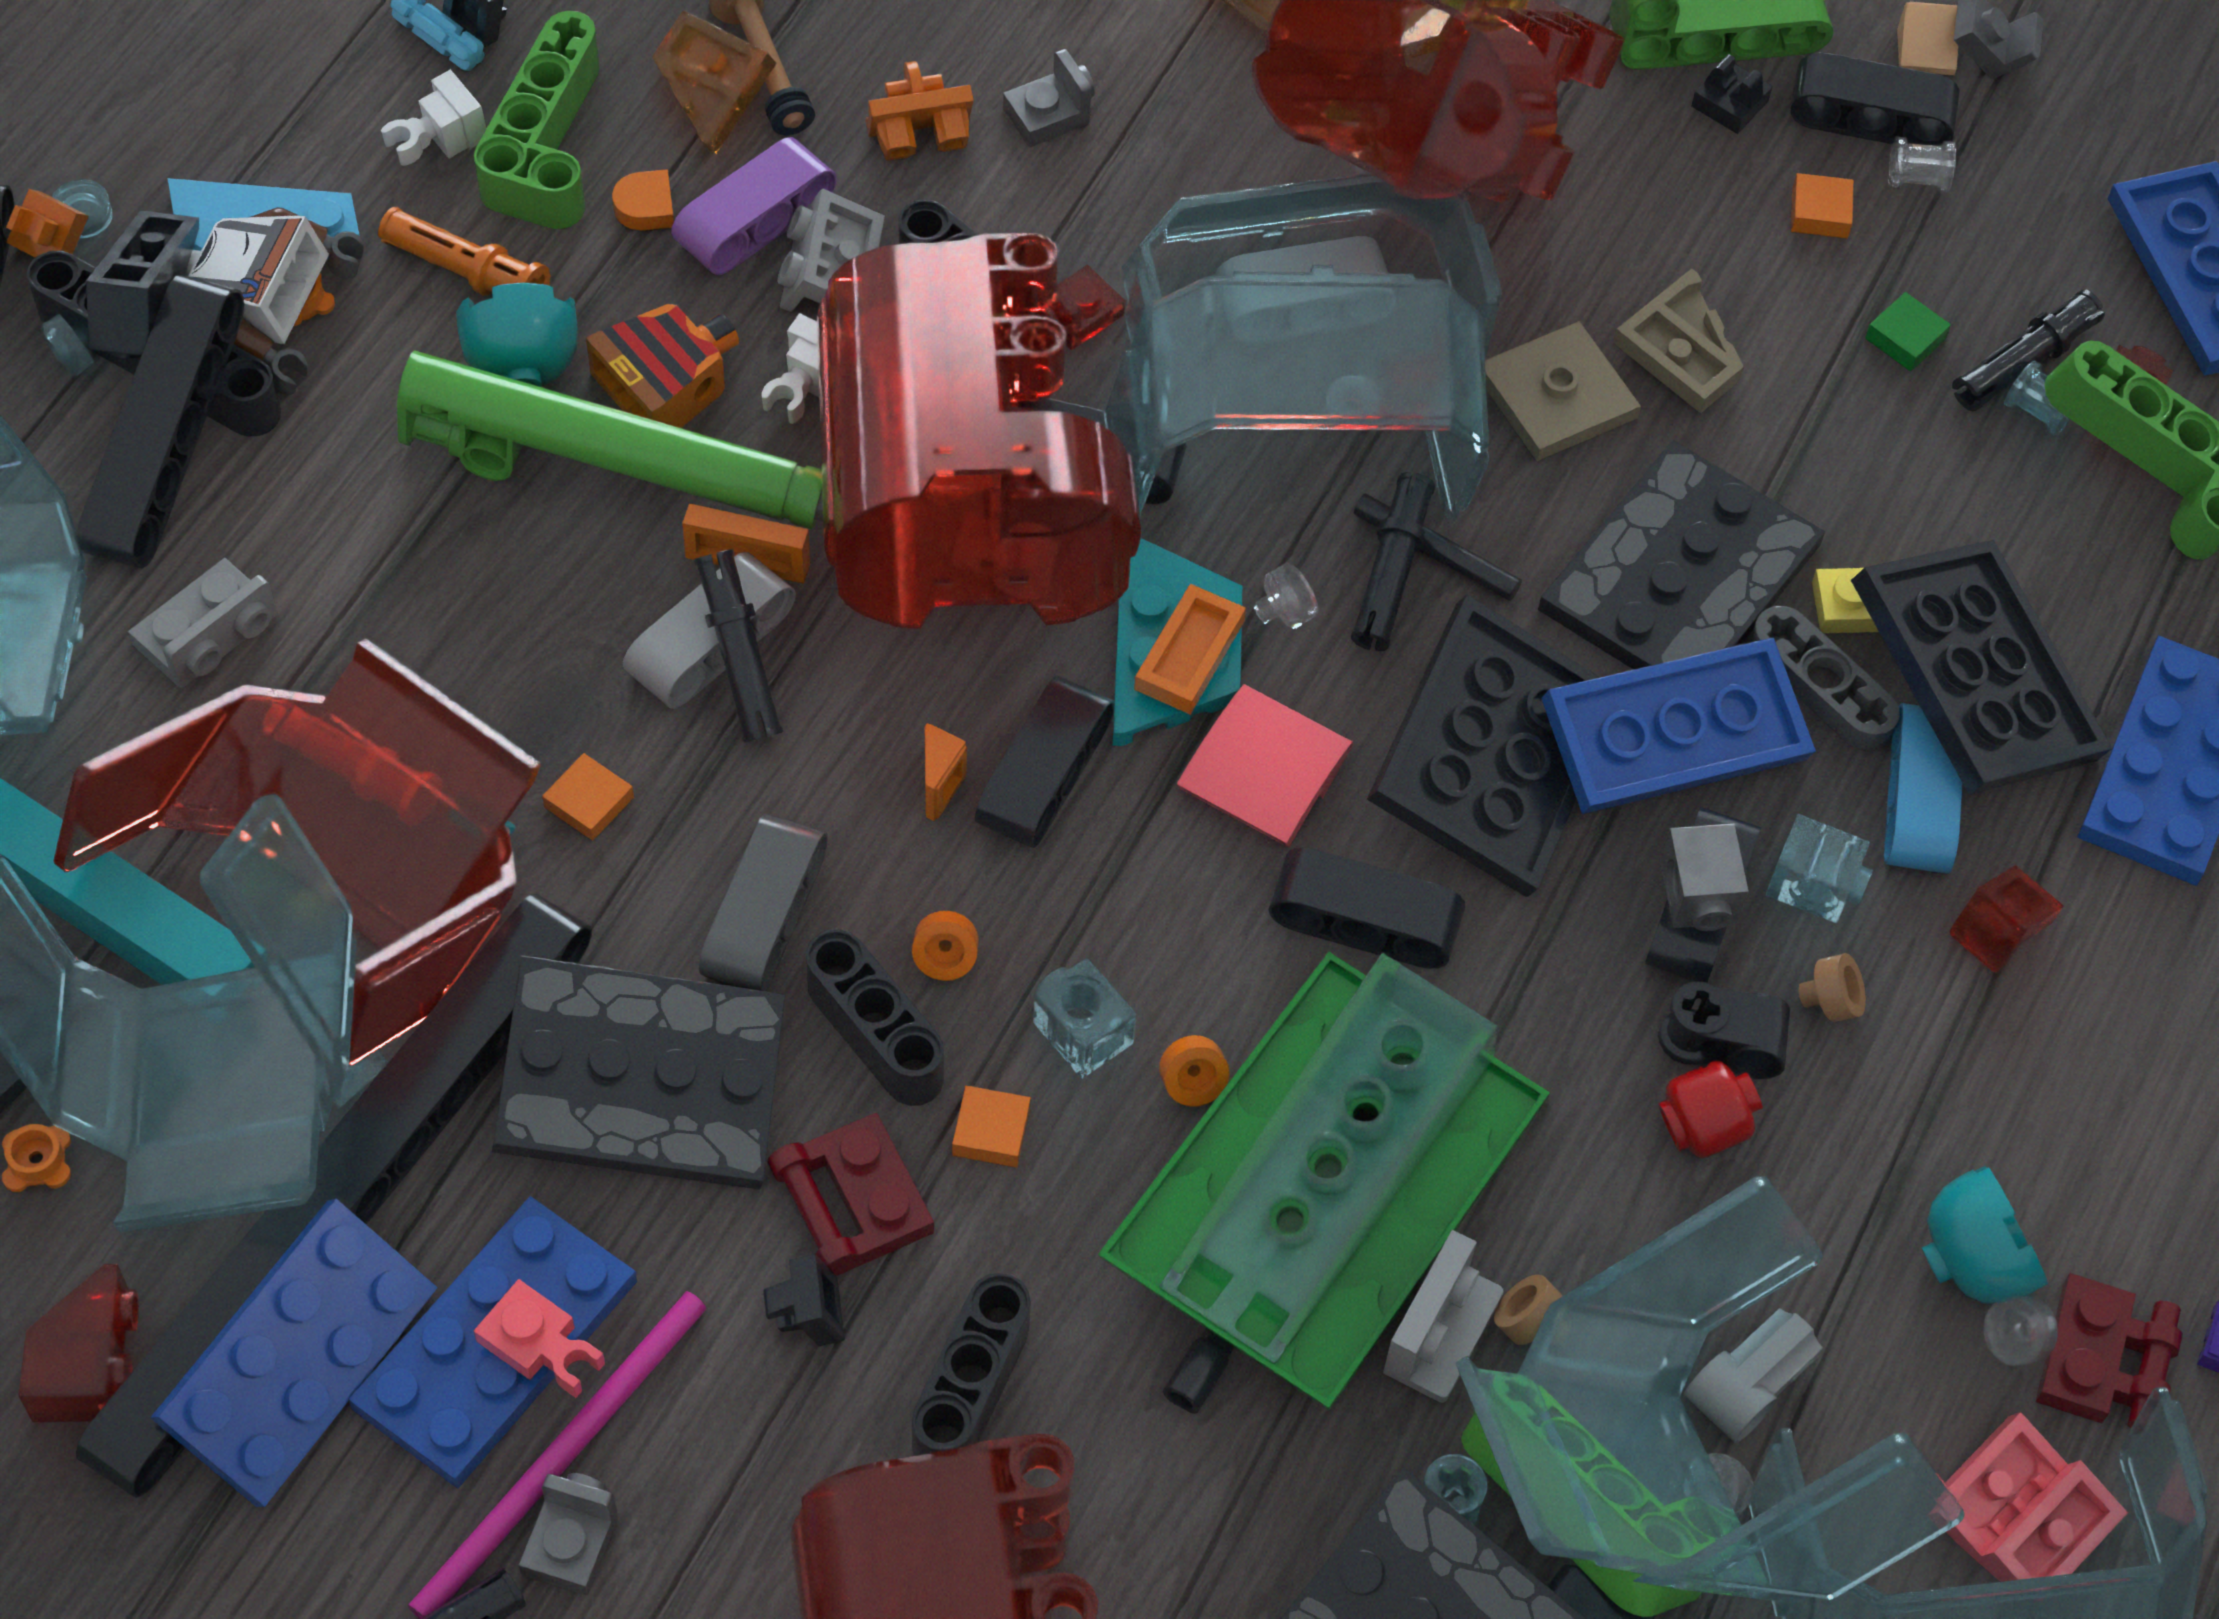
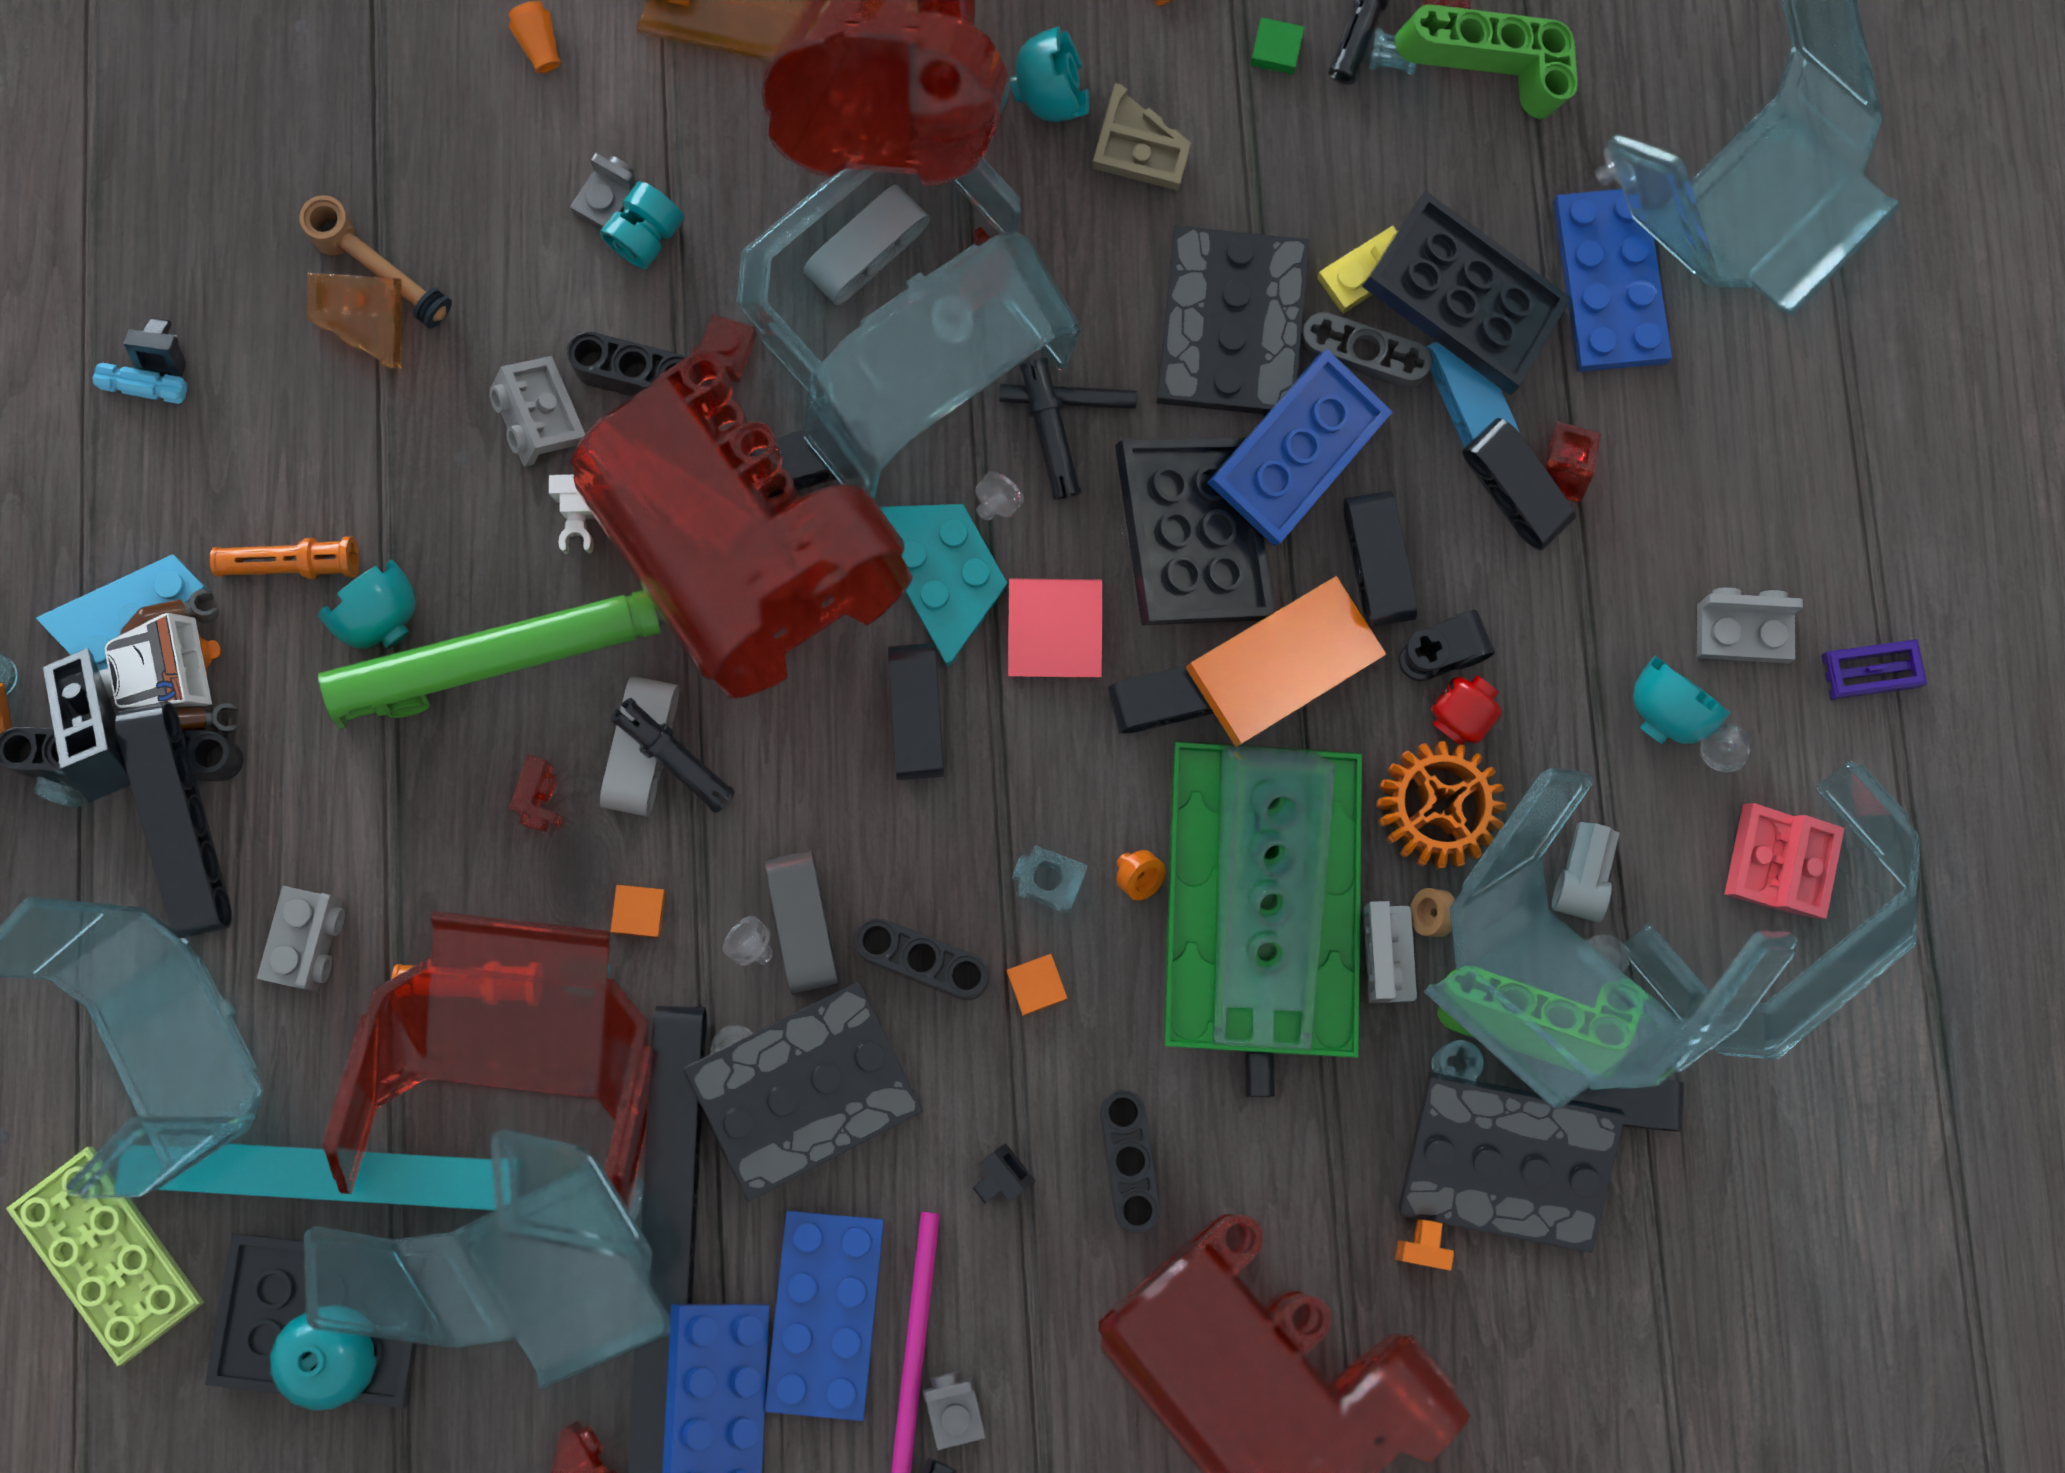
camera: 30 degrees left, 20 degrees up
(33, 1140) = (457, 1390): orange plate -> none
(448, 117) = (198, 454): white piece -> none
(518, 153) = (268, 410): bright green beam -> none
(532, 1333) = (850, 1307): coral plate -> none
(560, 608) = (533, 787): none -> clear red bracket
(644, 200) = (377, 437): orange tile -> none
(662, 363) = (479, 565): torso -> none
(689, 891) = (748, 942): none -> clear tile
(751, 205) = (457, 400): medium lavender beam -> none
(775, 544) = (619, 667): orange tile -> none
(870, 1184) = (990, 1071): dark red plate -> none
(917, 105) = (510, 274): orange hips -> none
(943, 769) = (855, 757): orange slope -> none
(945, 945) = (934, 882): orange tile -> none
(1074, 141) = (642, 225): none -> teal wheel
(1190, 649) = (962, 577): orange tile -> none
(1519, 932) = (1285, 661): none -> orange tile
(1559, 391) = (1079, 227): dark tan plate -> none
(1563, 1207) = (1473, 782): none -> orange gear
(1619, 224) = (1050, 77): none -> teal cylinder
(1704, 876) = (1386, 560): flat silver brick -> none
(1820, 869) = (1441, 497): clear light blue brick -> none
(1835, 988) = (1494, 577): medium nougat tile -> none
(1924, 896) = (1519, 483): none -> black beam
(2092, 1333) = (1764, 717): dark red plate -> none
(2132, 1213) = (1747, 626): none -> light grey bracket

